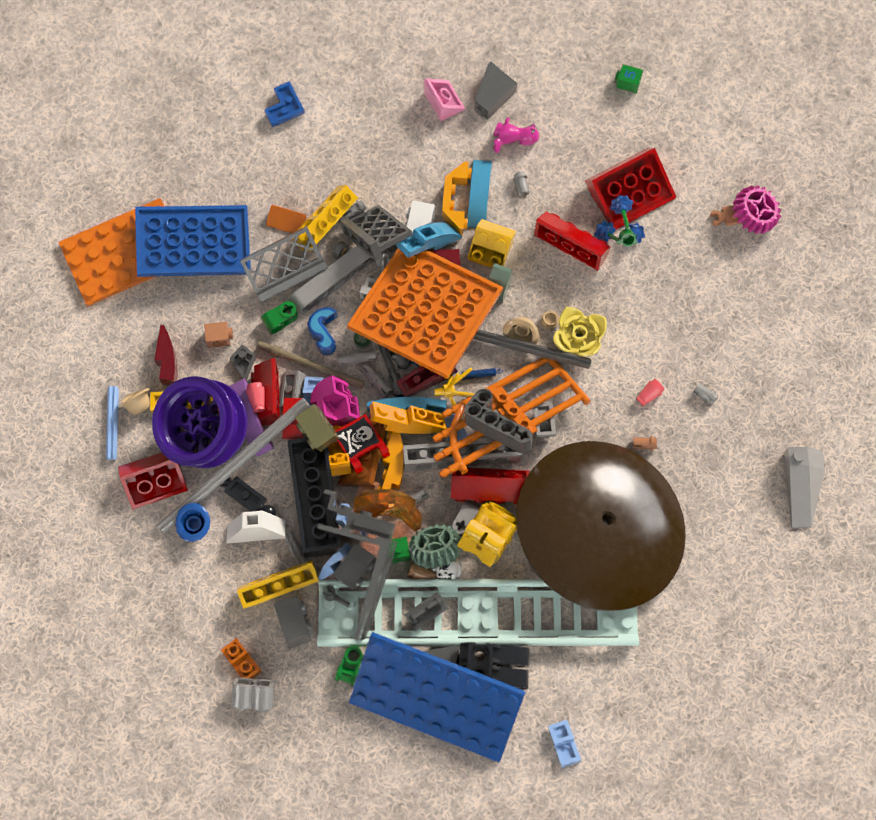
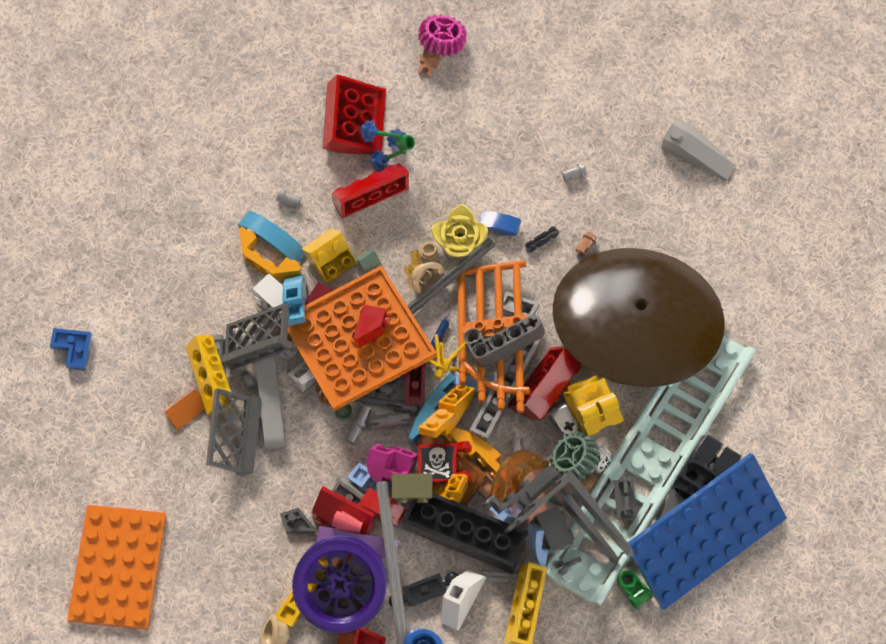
camera: 60 degrees left, 5 degrees down
(166, 358) = (249, 584): dark red slope -> none
(191, 240) = (152, 498): blue plate -> none
(218, 334) = (257, 528): nougat brick -> none
(277, 351) = (306, 488): dark tan bar -> none
(278, 318) = (277, 467): green piece -> none
(292, 622) = (568, 611): dark grey brick -> none
(319, 333) = (314, 441): blue animal -> none
(437, 308) = (370, 325): none -> red slope
(442, 98) = (163, 214): bright pink slope -> none
(493, 91) = (185, 168): dark grey slope -> none
(510, 133) = (236, 180): dark pink animal -> none
(534, 315) = (416, 260): none -> clear yellow arm
(564, 744) = (800, 459): light blue slope -> none
(614, 361) = (502, 223): none -> blue slope
(624, 404) = (541, 239): none -> black axle
(628, 78) = (253, 57): green brick -> none
(650, 392) = (545, 212): coral cone -> none

